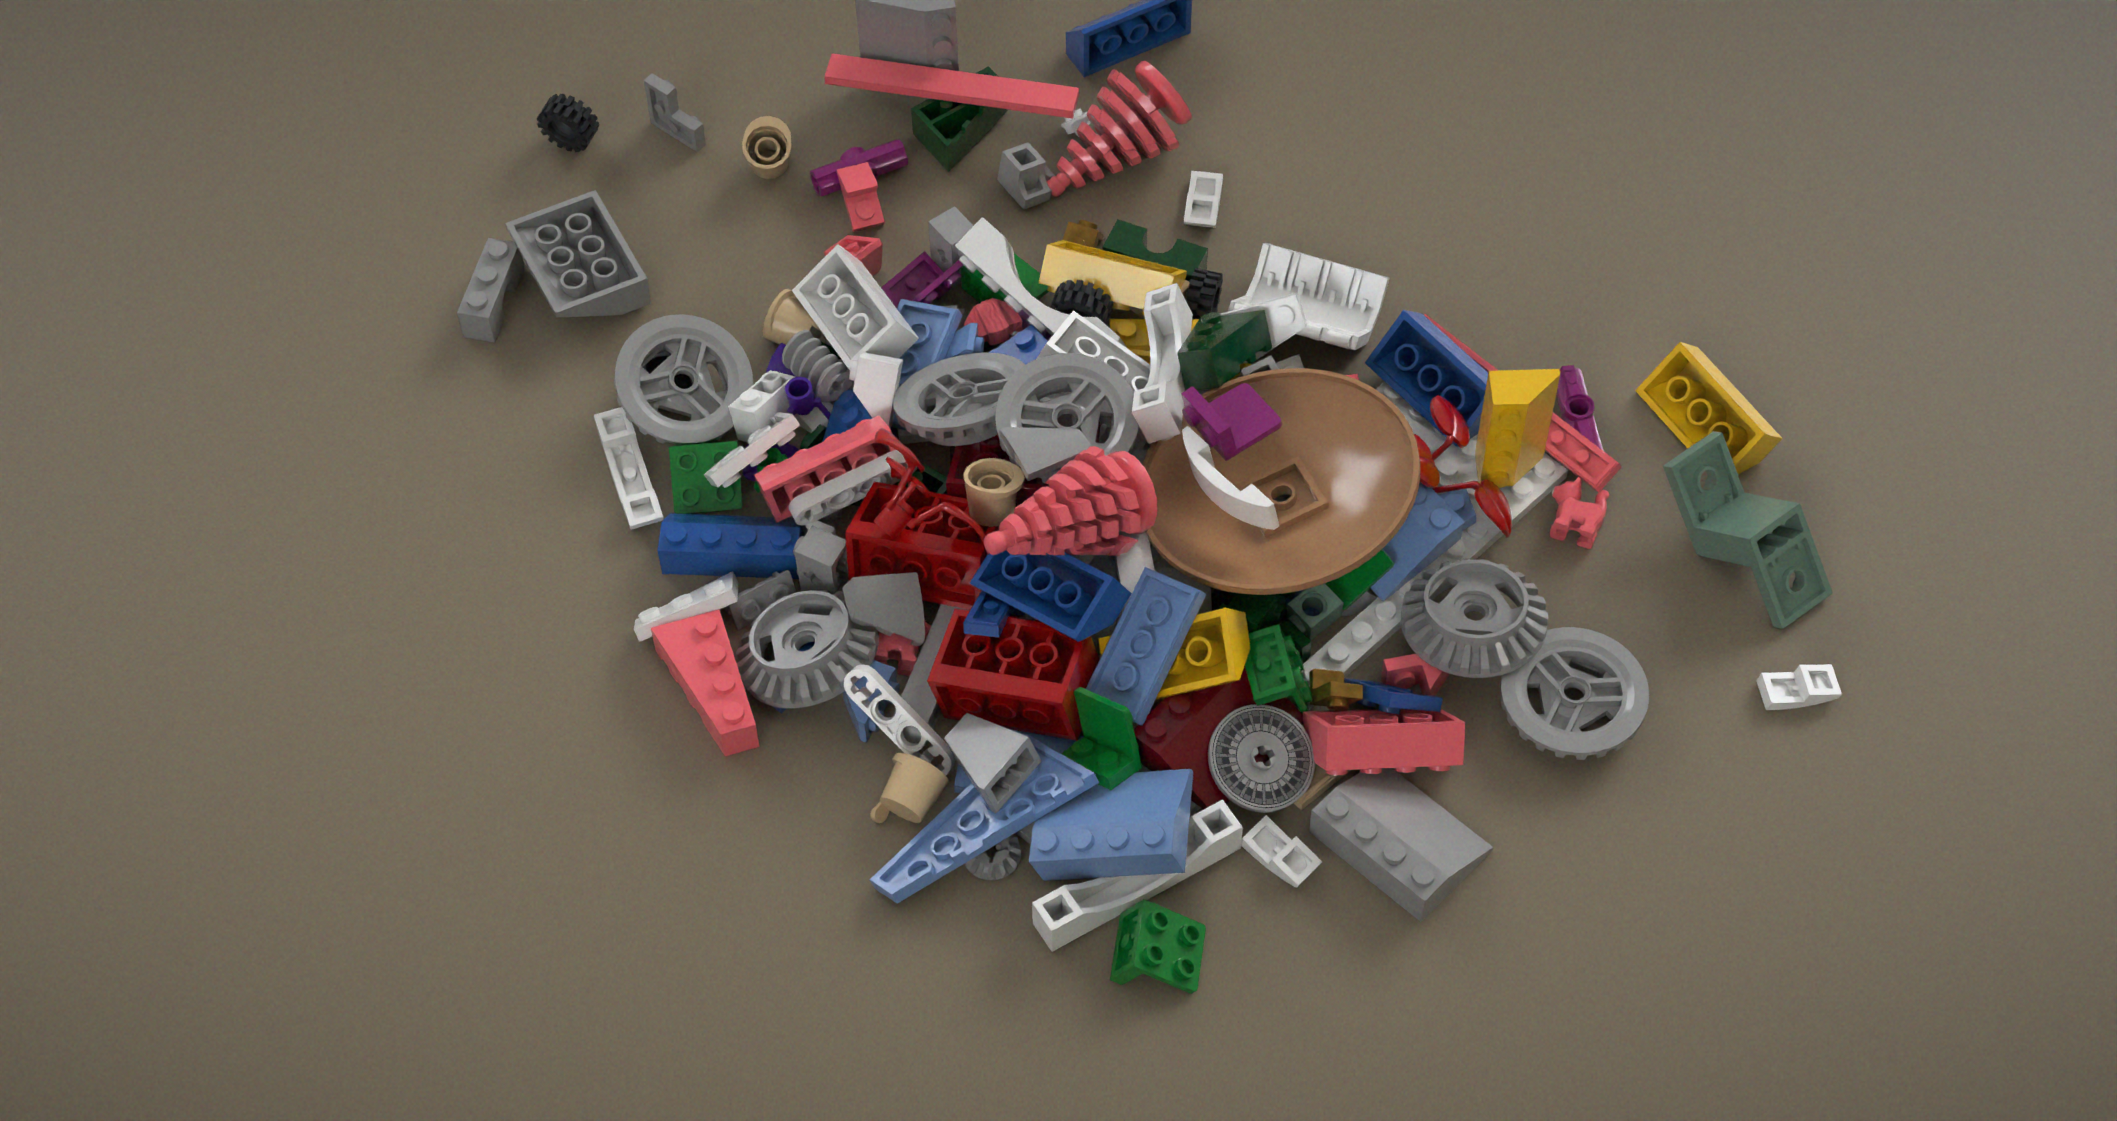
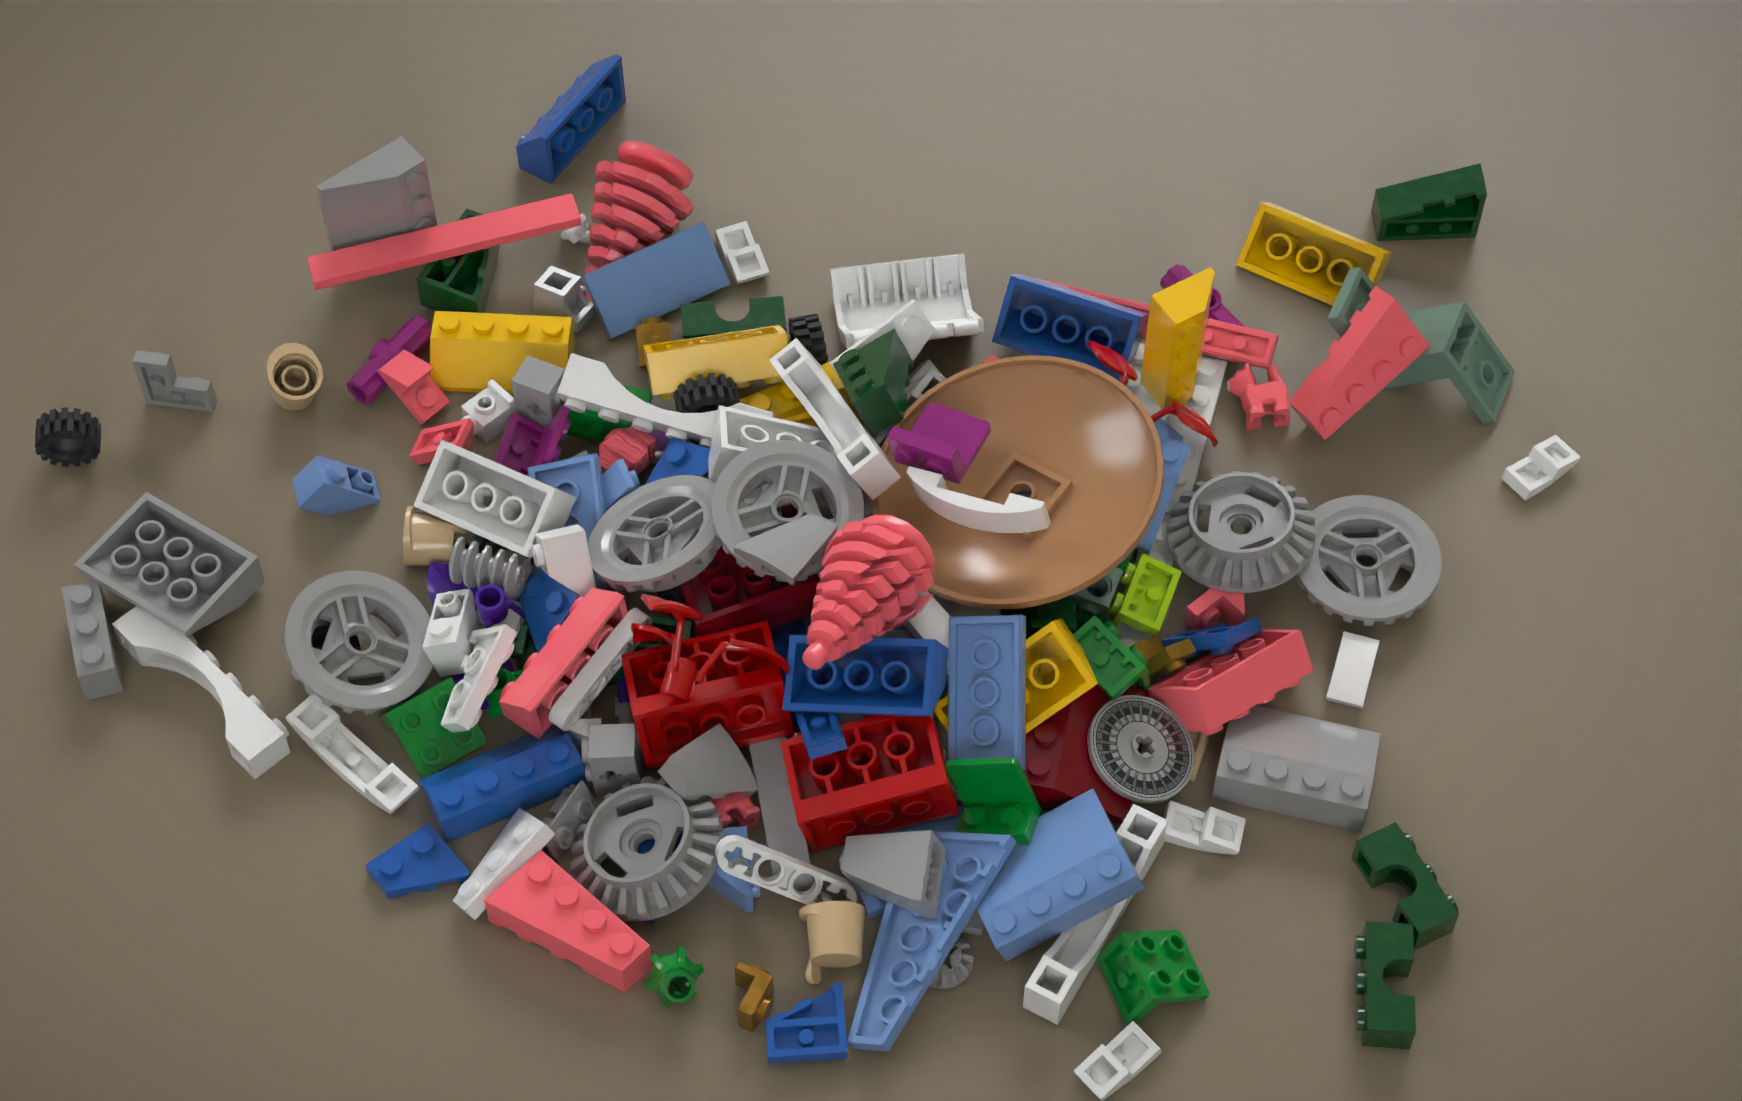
camera: 30 degrees left, 0 degrees up
(560, 413) = (250, 734): none -> white arch
(626, 578) = (416, 864): none -> blue wing
(749, 251) = (334, 487): none -> medium blue slope
(764, 760) = (673, 977): none -> green rock
(819, 810) = (757, 1001): none -> pearl gold bracket
(846, 855) = (810, 1030): none -> blue wing
(906, 242) = (489, 411): none -> white brick
(929, 184) = (480, 347): none -> yellow slope
(992, 490) = (755, 609): tan hat -> none
(1082, 1007) = (1117, 1062): none -> white slope
(1112, 190) = (656, 279): none -> medium blue tile
(1353, 634) = (1145, 594): none -> lime bracket
(1365, 1029) = (1384, 1016): none -> dark green arch
(1426, 1013) = (1392, 857): none -> dark green arch
(1502, 781) = (1352, 670): none -> white slope
(1673, 519) = (1359, 364): none -> coral wedge
(1846, 413) = (1431, 206): none -> dark green wedge

